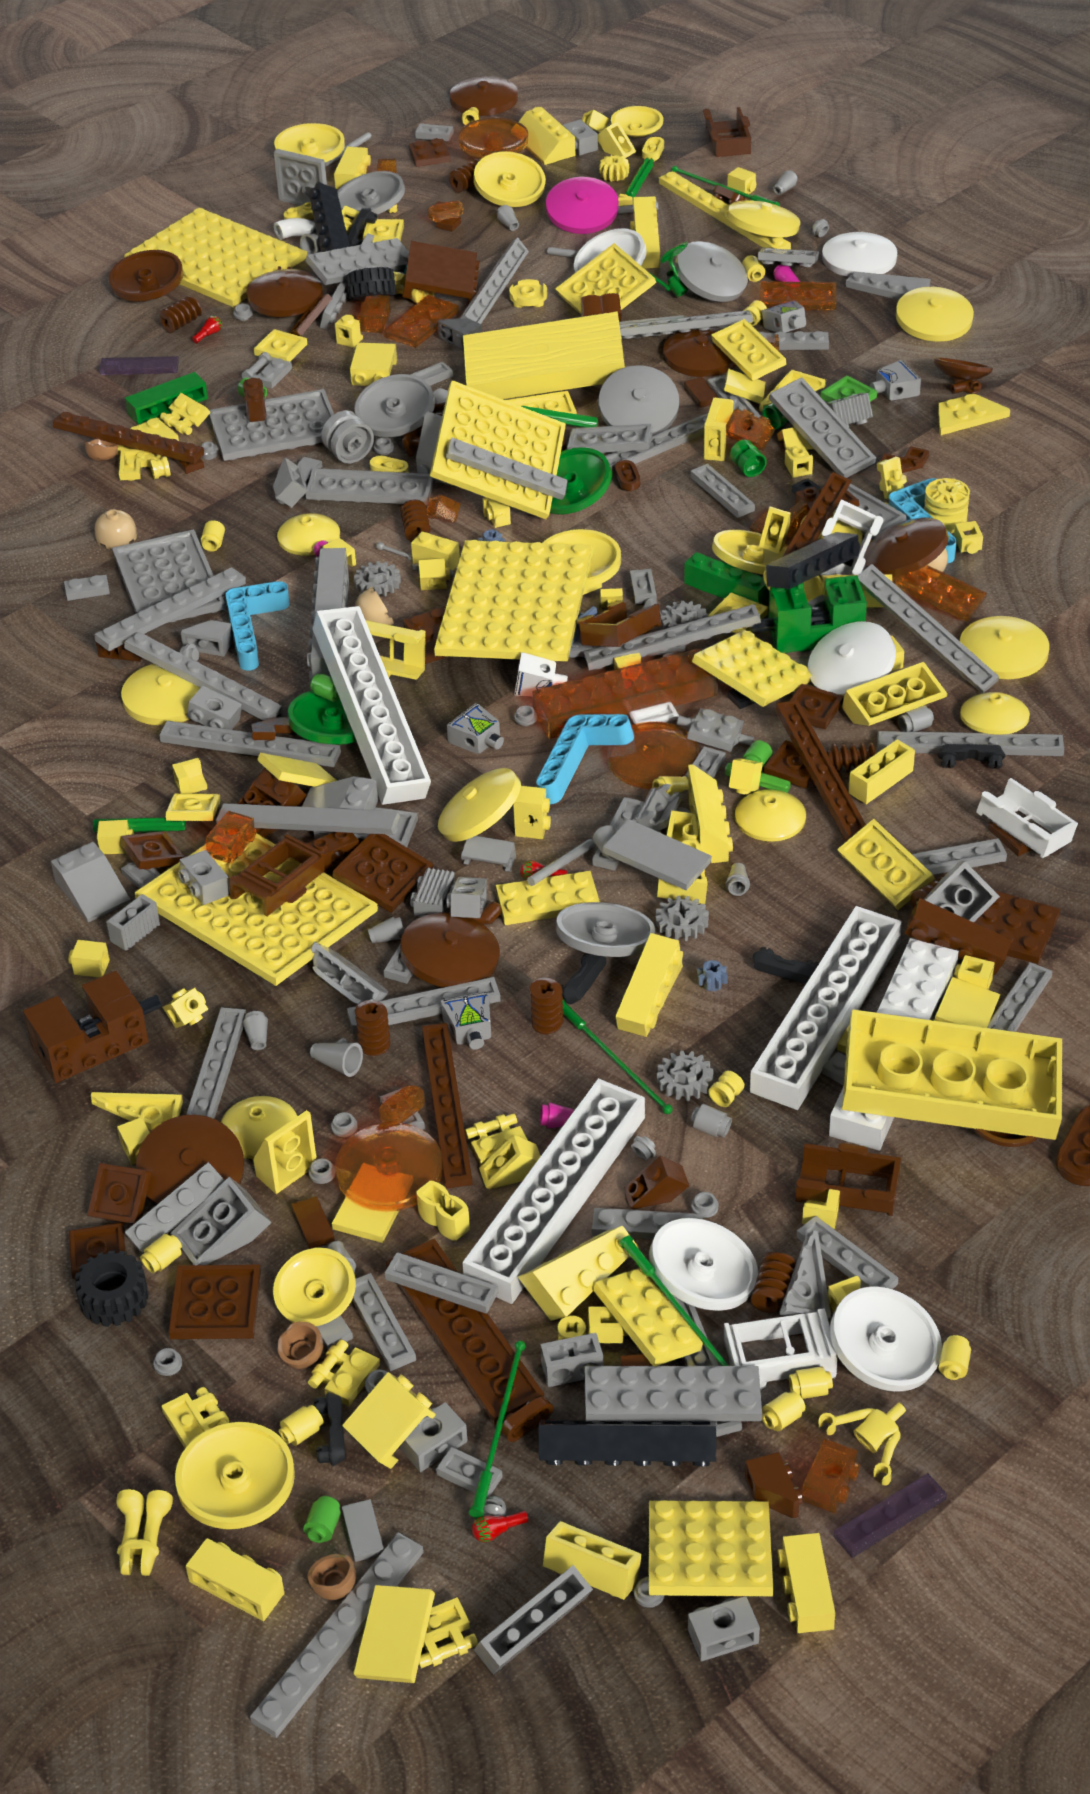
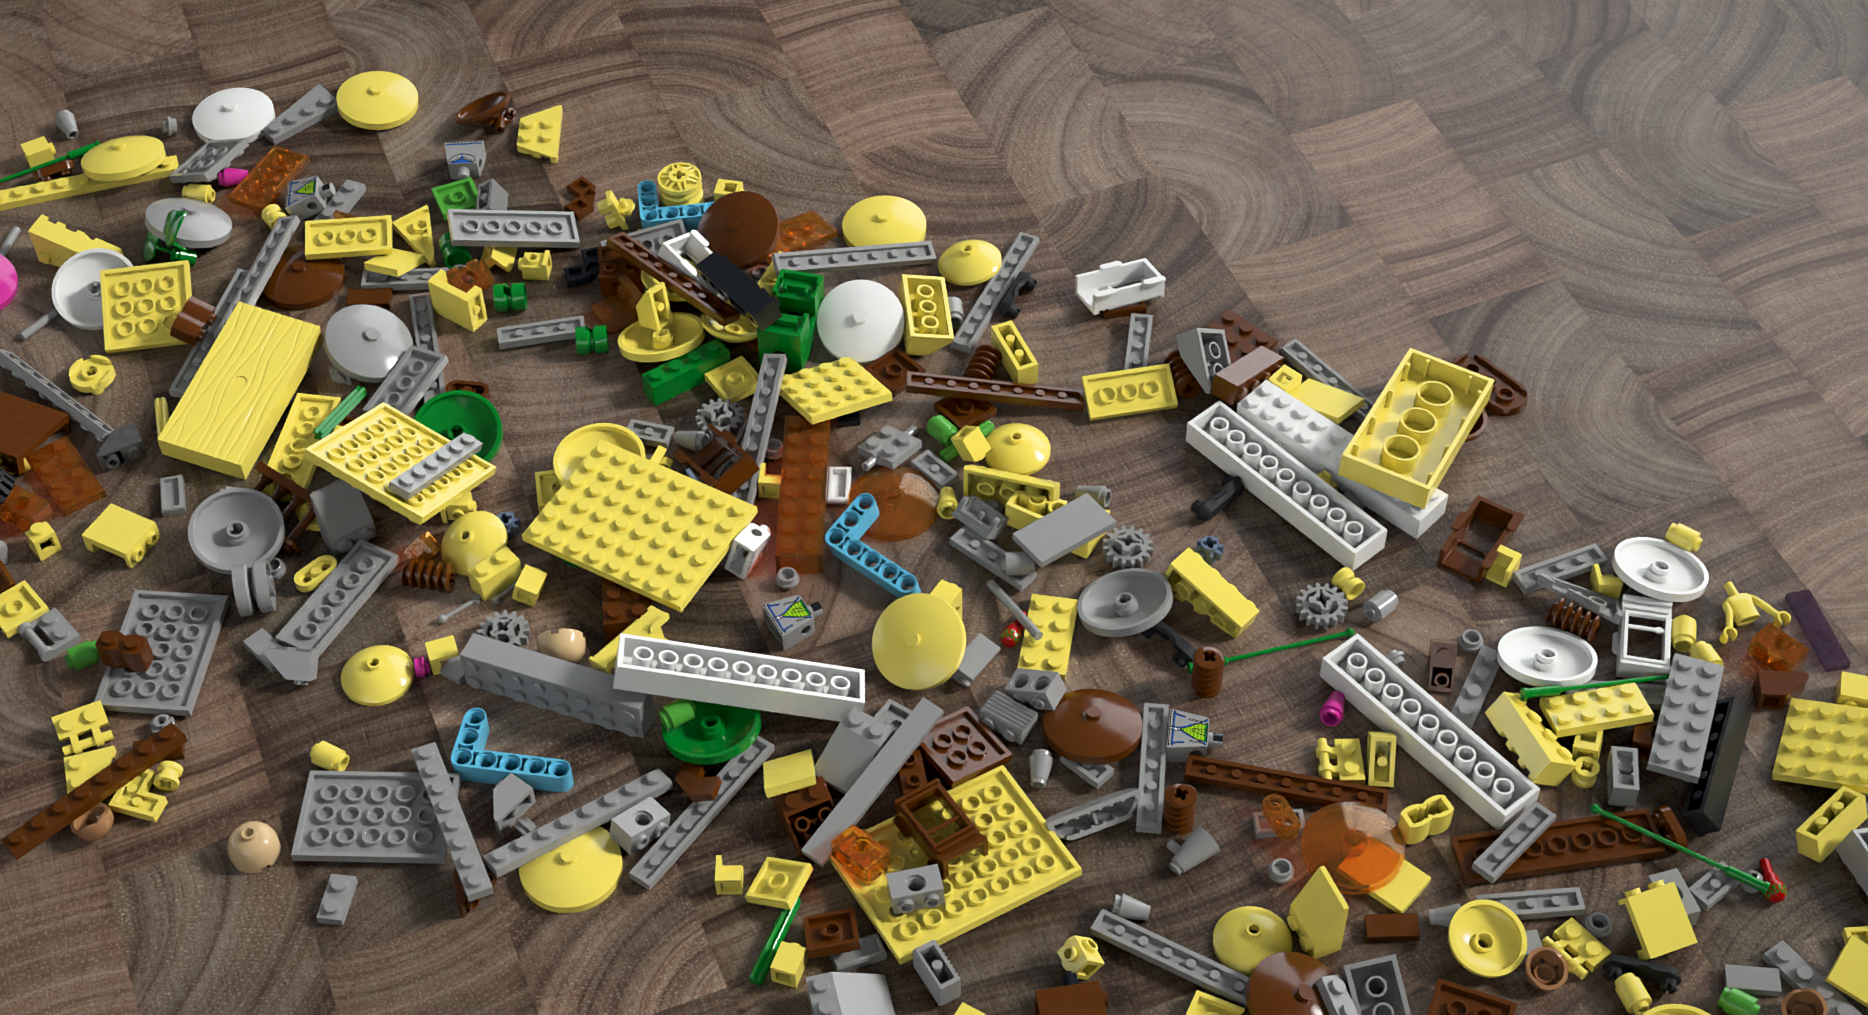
camera: 70 degrees left, 5 degrees up
(157, 400) = (35, 739): green brick -> none
(464, 526) = (485, 538): none -> light yellow dish
(727, 515) = (592, 339): none -> green wheel

